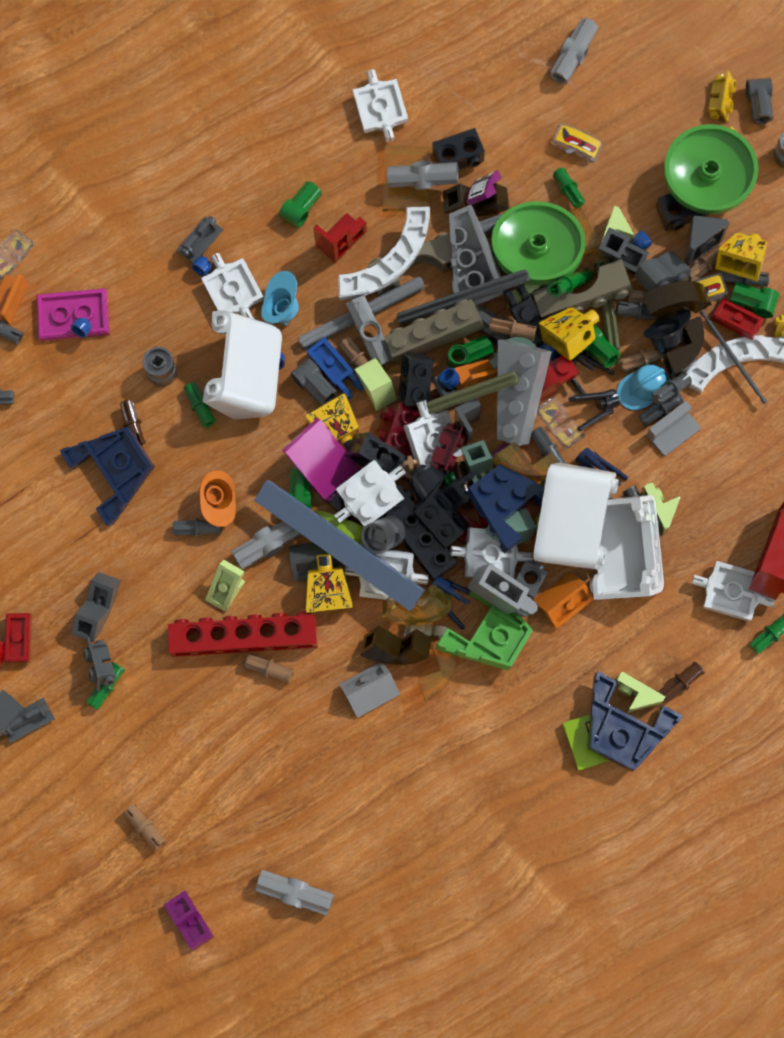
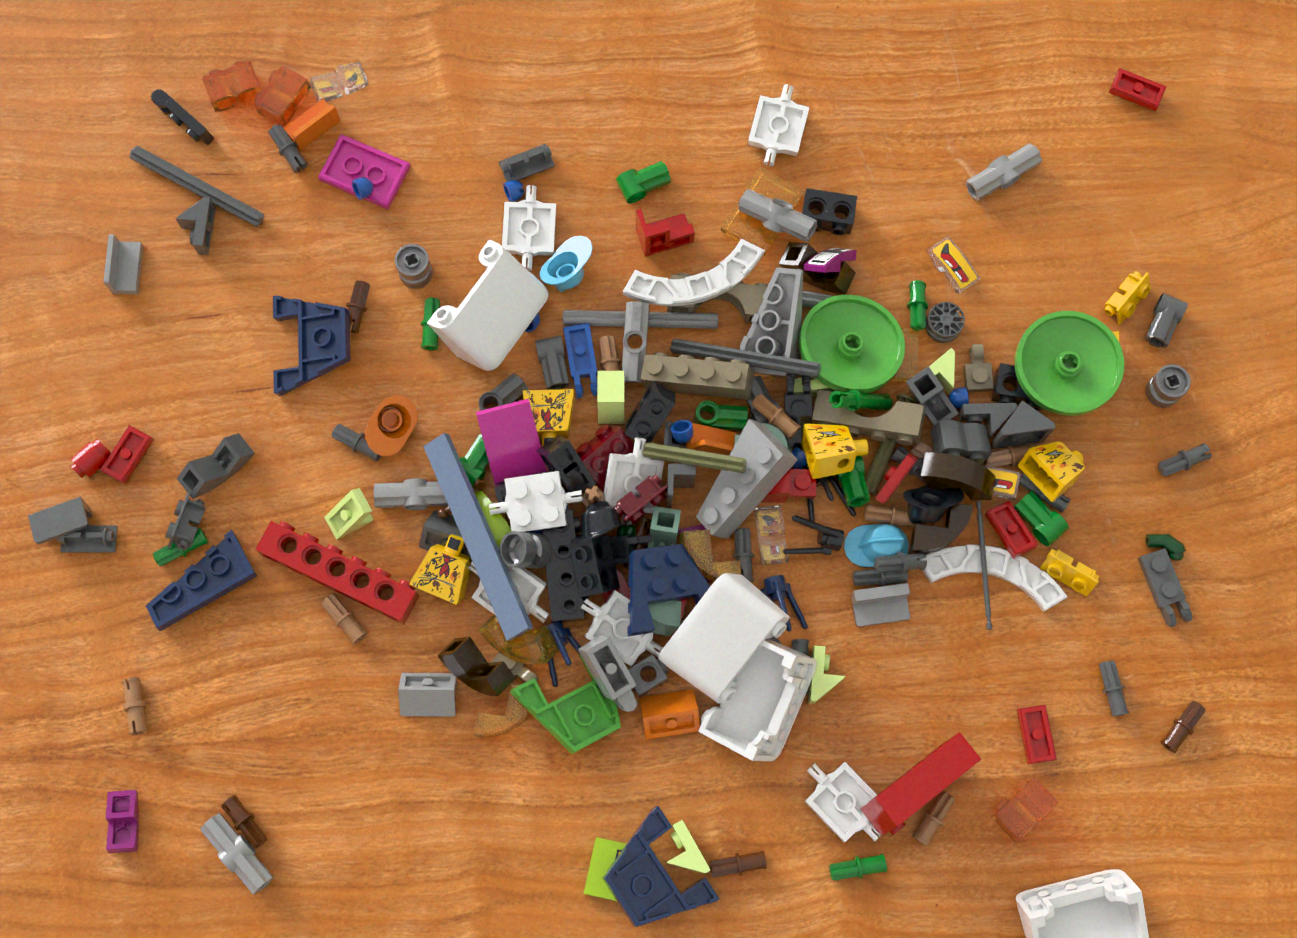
camera: 25 degrees right, 0 degrees up
(146, 691) = (211, 578): none -> dark blue wing
(285, 865) = (244, 821): none -> reddish brown axle
(291, 427) = (507, 392): none -> dark grey piece
(299, 543) = (478, 485): none -> reddish brown hinge
(597, 189) = (944, 322): none -> dark grey wheel
(629, 326) = (895, 477): none -> red plate
(645, 215) = (978, 374): none -> dark tan plate
(673, 240) = (992, 413): none -> dark grey slope

